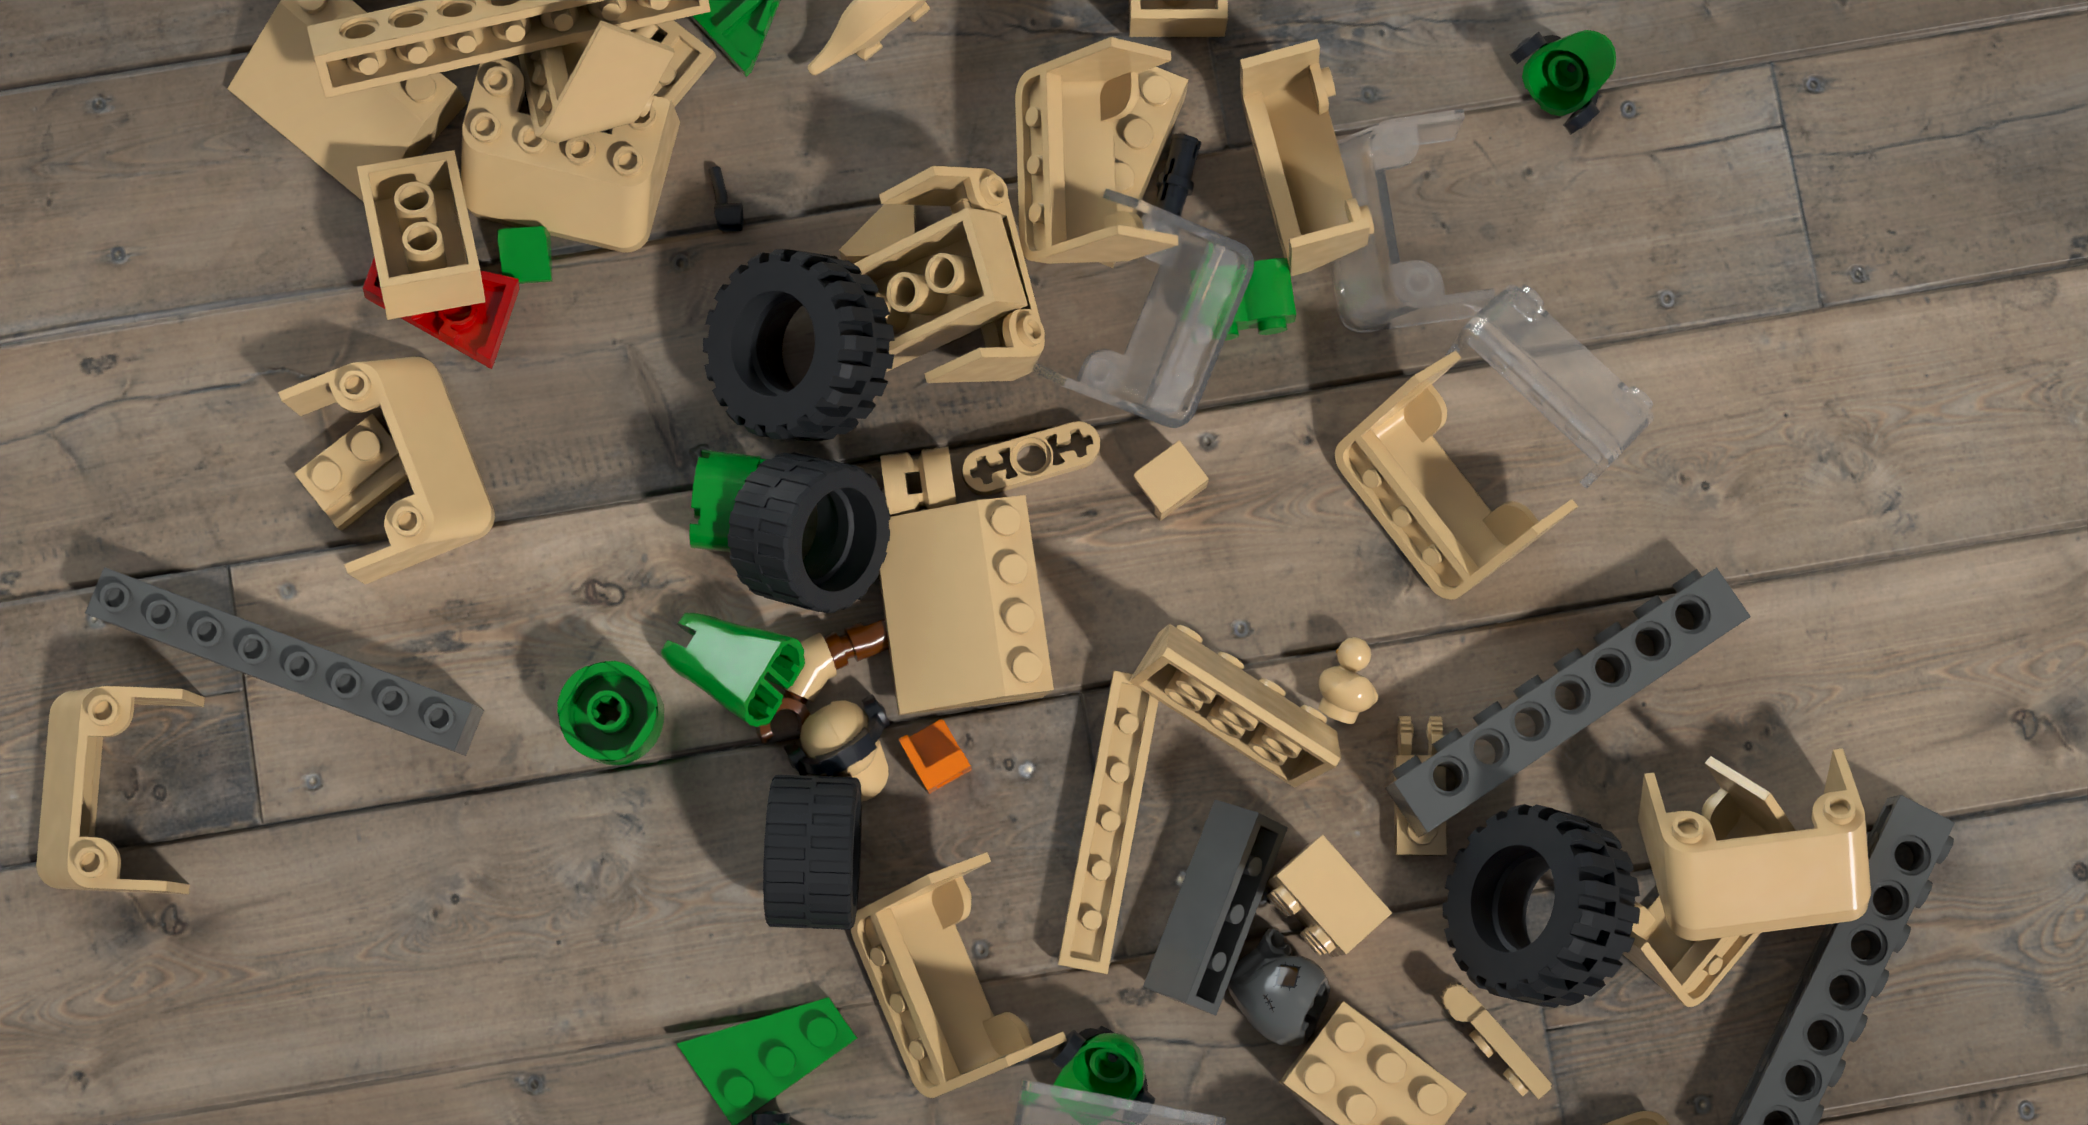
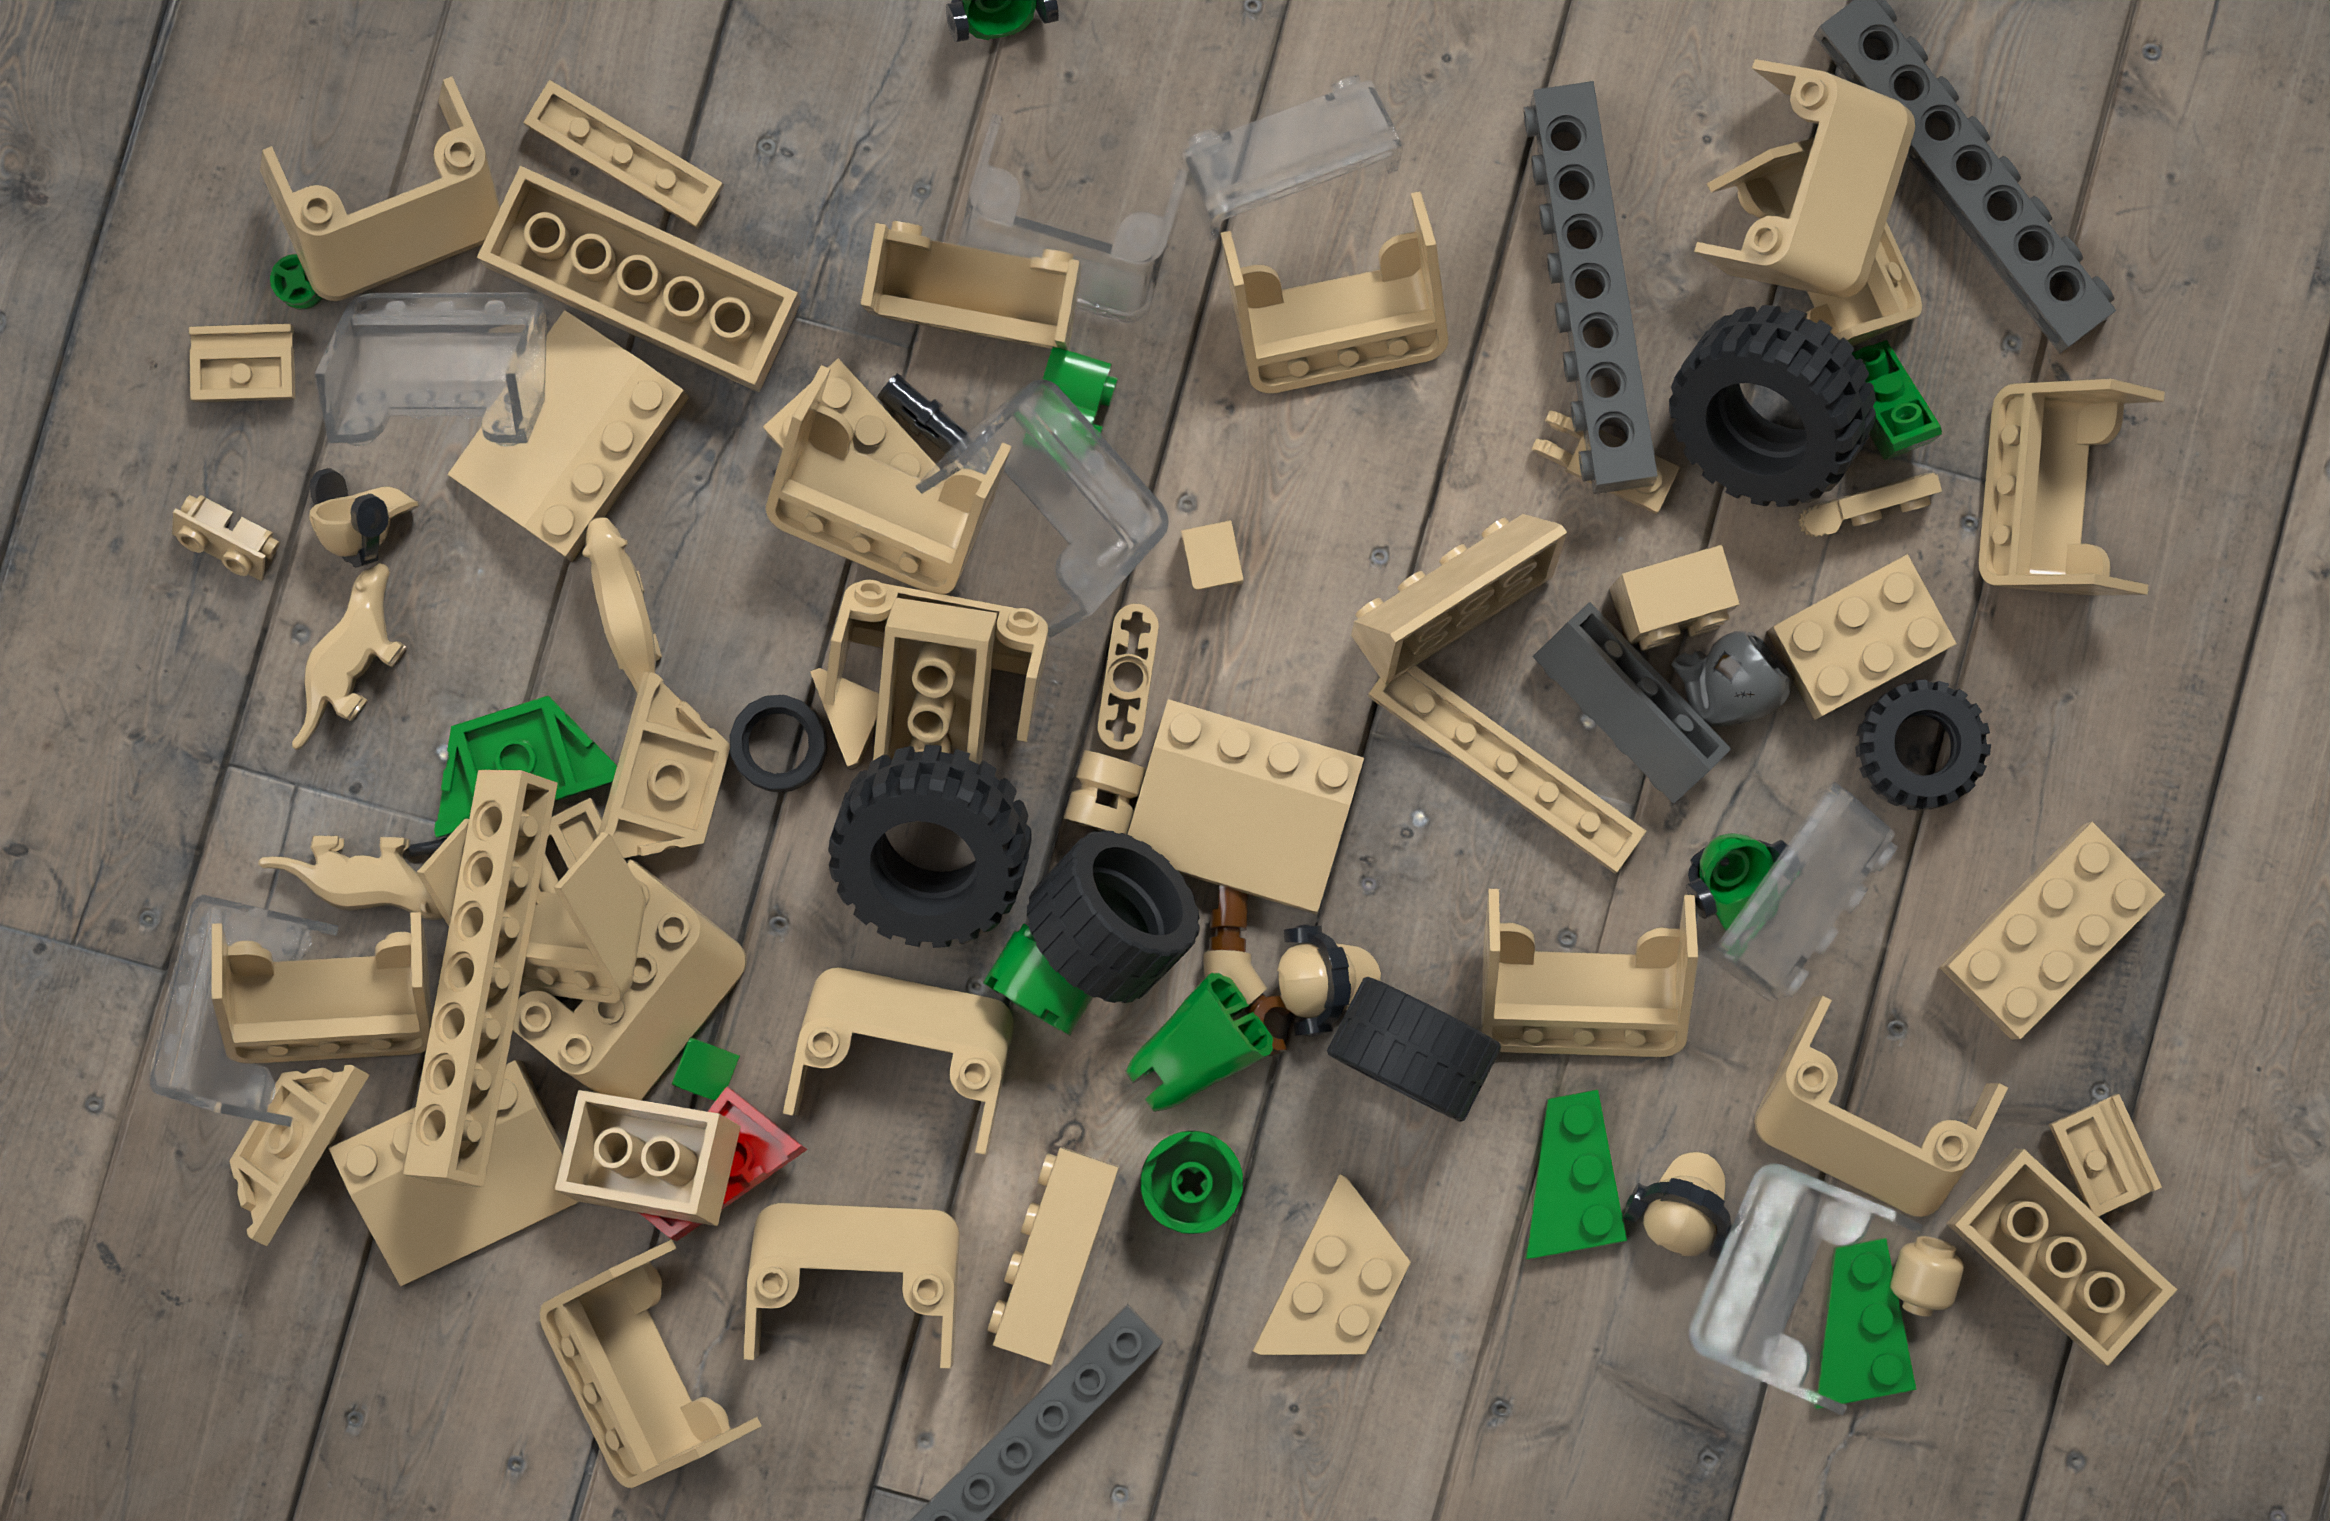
camera: 65 degrees left, 5 degrees up
(233, 310) = (627, 1375): none -> tan windscreen
(354, 472) = (842, 1325): tan plate -> none
(490, 621) = (1055, 1255): none -> tan brick
(581, 885) = (1337, 1283): none -> tan wing
(659, 453) = (911, 1013): none -> tan windscreen
(728, 215) = (756, 857): black hand -> none
(757, 103) = (664, 775): none -> tan wing
(830, 151) = (778, 705): none -> black tyre
(935, 755) = (1369, 897): orange panel -> none
(1344, 689) = (1480, 488): tan animal -> none
(1589, 1028) = (1902, 415): none -> green slope

